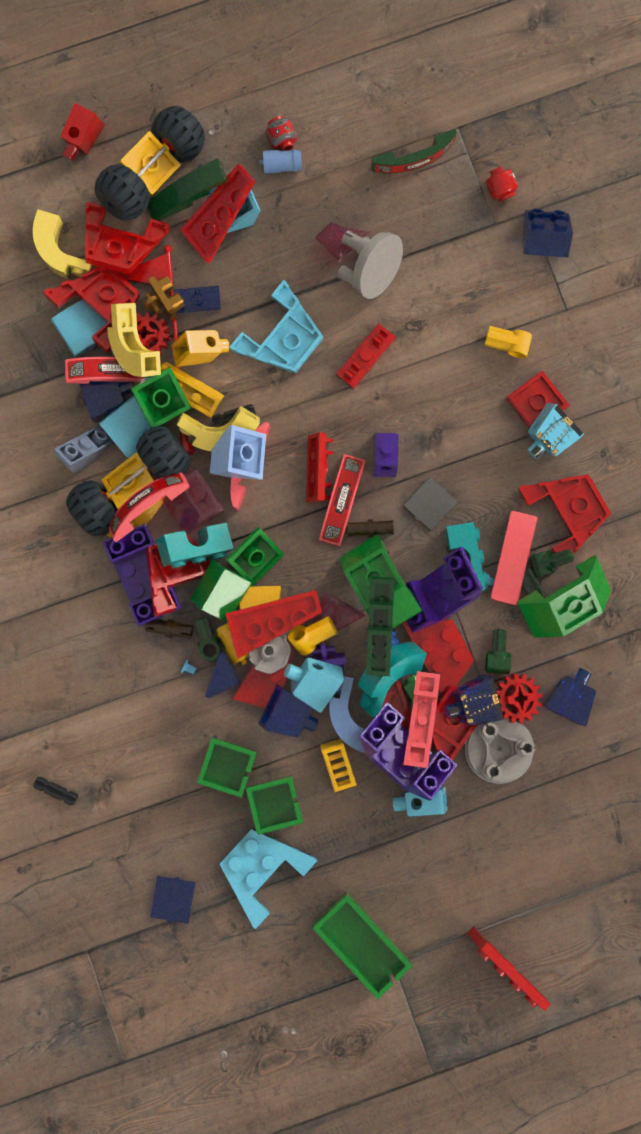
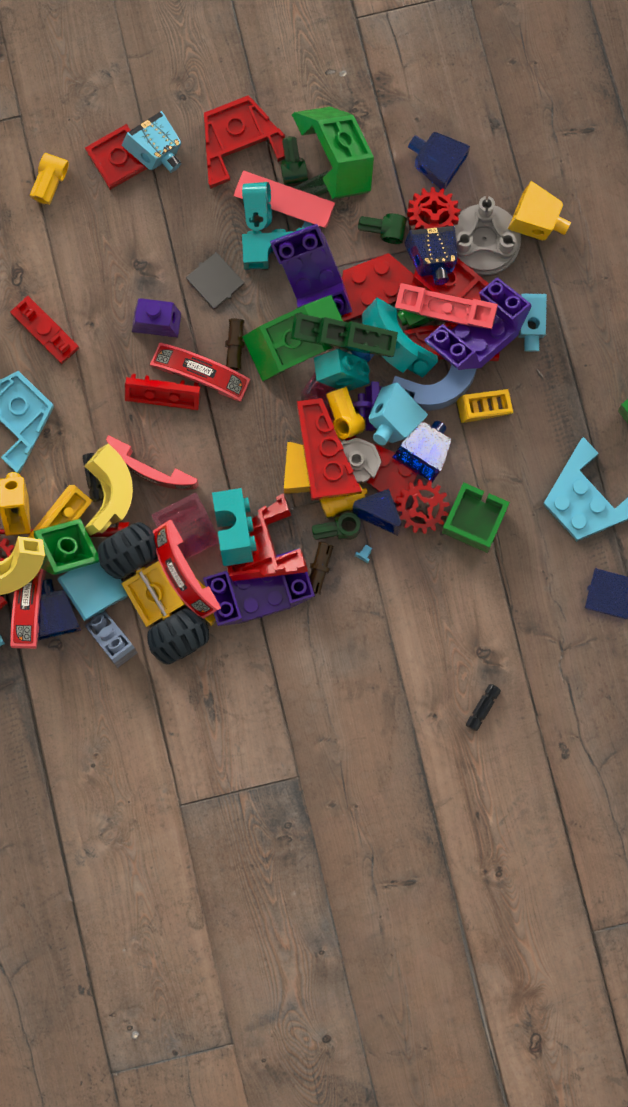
camera: 80 degrees left, 5 degrees down
(220, 590) = (285, 505): slope -> none
(225, 711) = (433, 500): none -> red gear
(239, 454) = (140, 467): light blue slope -> none
(255, 556) = (251, 468): green slope -> none
(274, 804) = (520, 475): green piece -> none
(352, 628) = (341, 370): none -> teal brick
(506, 532) = (257, 202): none -> teal piece
(527, 798) = (538, 214): none -> yellow torso

